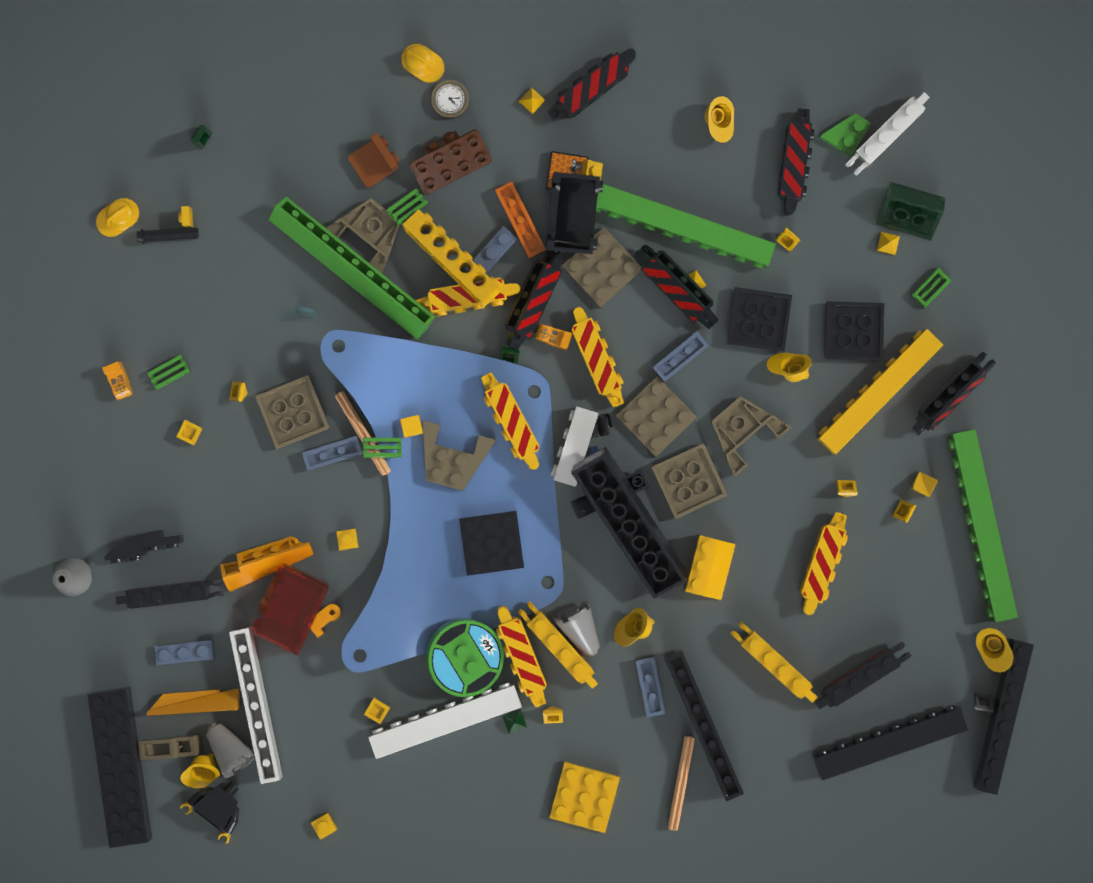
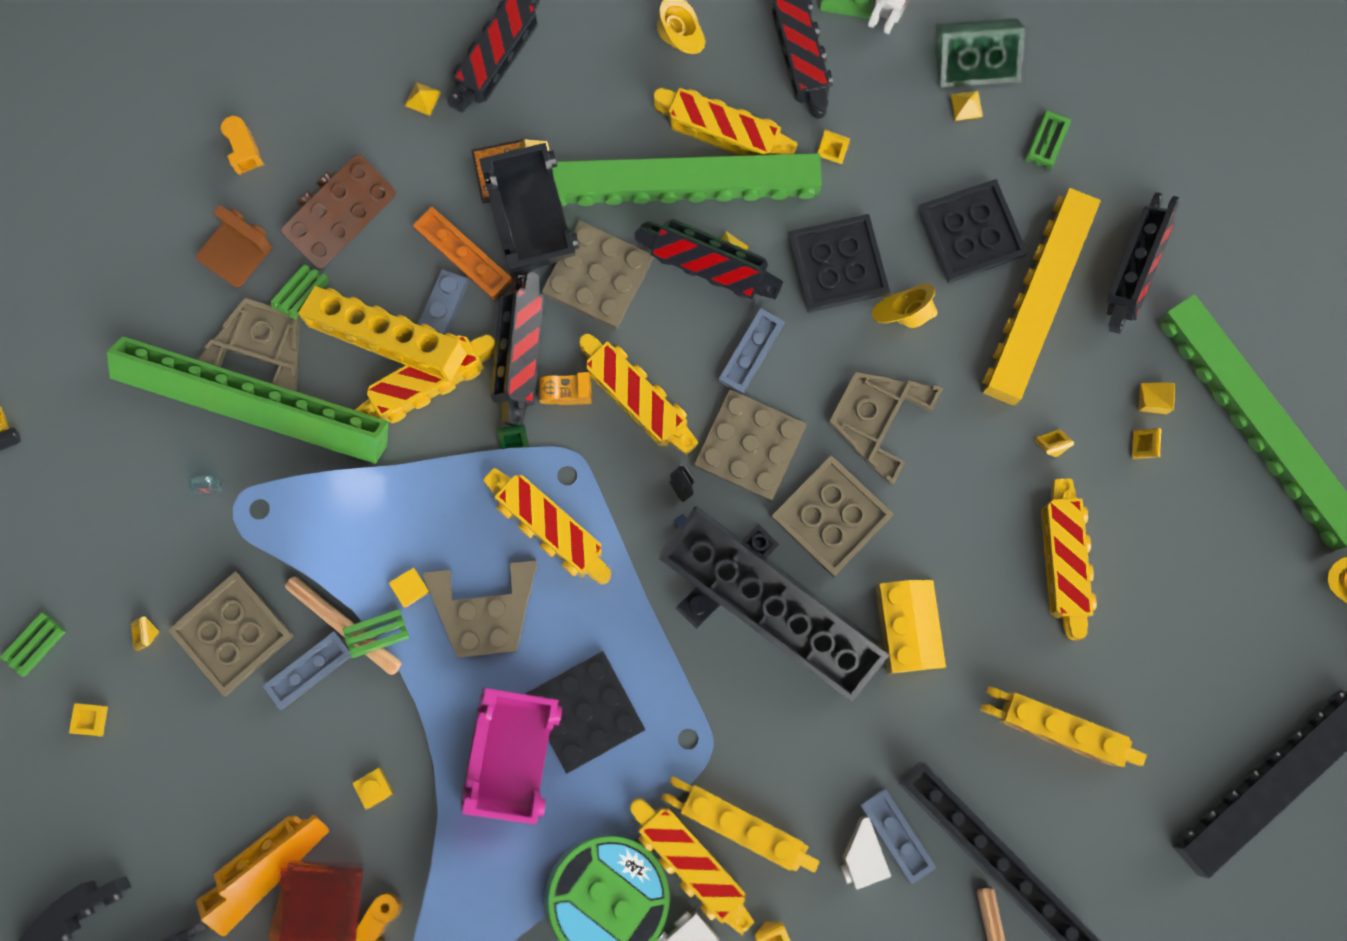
camera: 20 degrees left, 10 degrees down
(403, 89) = (245, 150): none -> light orange leg
(422, 63) = (259, 103): yellow piece -> none
(436, 552) = (508, 756): none -> dark pink windscreen
(450, 99) = (311, 135): tile -> none
(576, 444) = (653, 526): white brick -> none
(579, 627) = (760, 787): light grey cone -> none
(625, 691) = (864, 857): none -> white slope
(633, 627) = (837, 756): yellow piece -> none
(722, 198) = (721, 125): none -> yellow hinge
(861, 677) = (1194, 700): black hinge -> none

